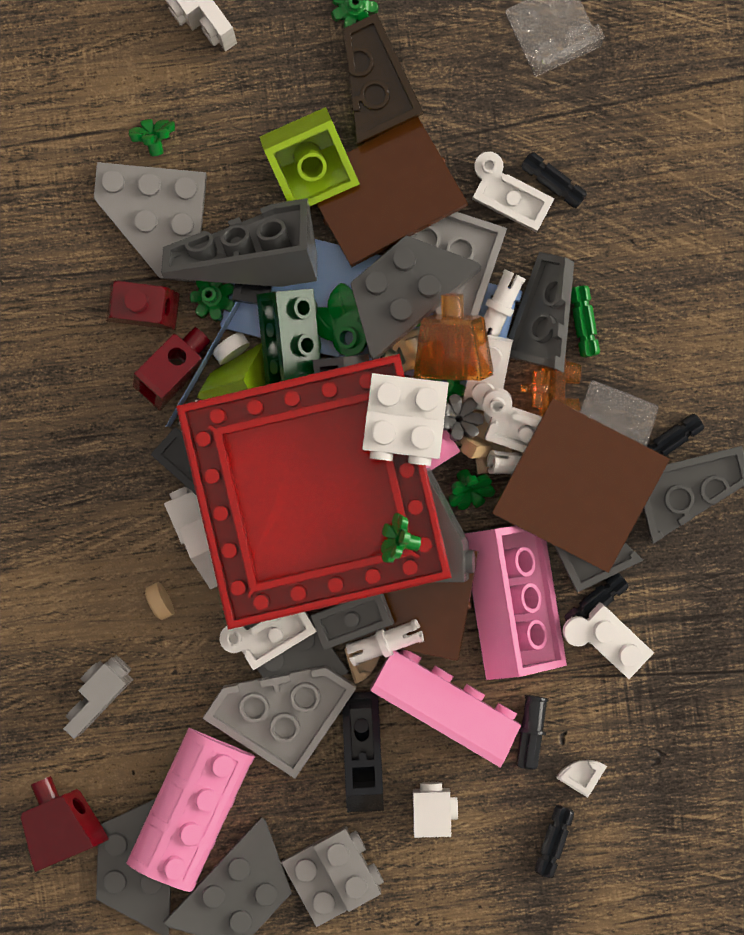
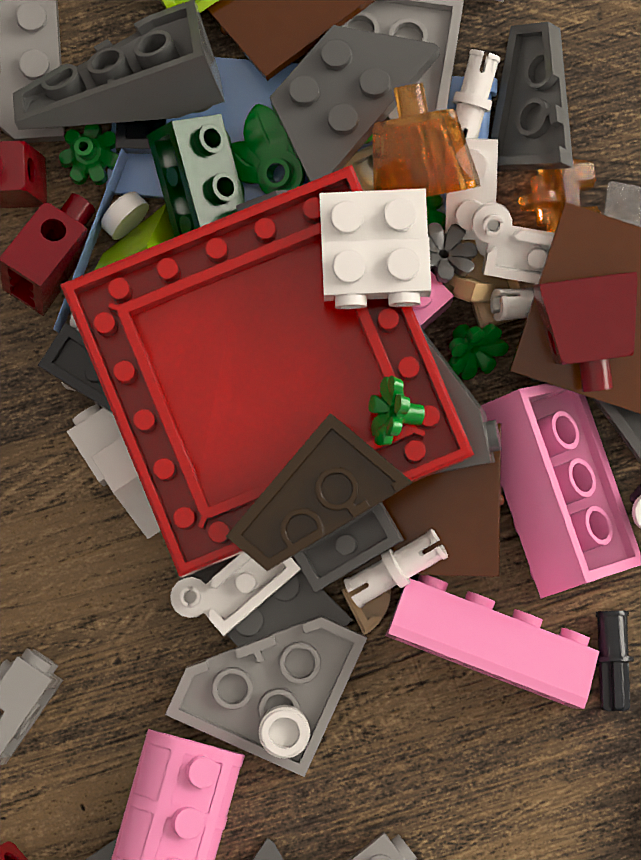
camera: 10 degrees left, 5 degrees down
(159, 601) = (81, 566): tan tile -> none
(285, 745) = (284, 731): none -> white tile
(332, 589) = (315, 494): none -> dark brown wing
(362, 753) = (391, 727): black slope -> none
(433, 810) = (499, 789): white brick -> none
(554, 490) = (590, 323): none -> dark red torso
(584, 321) = (587, 106): green axle -> none

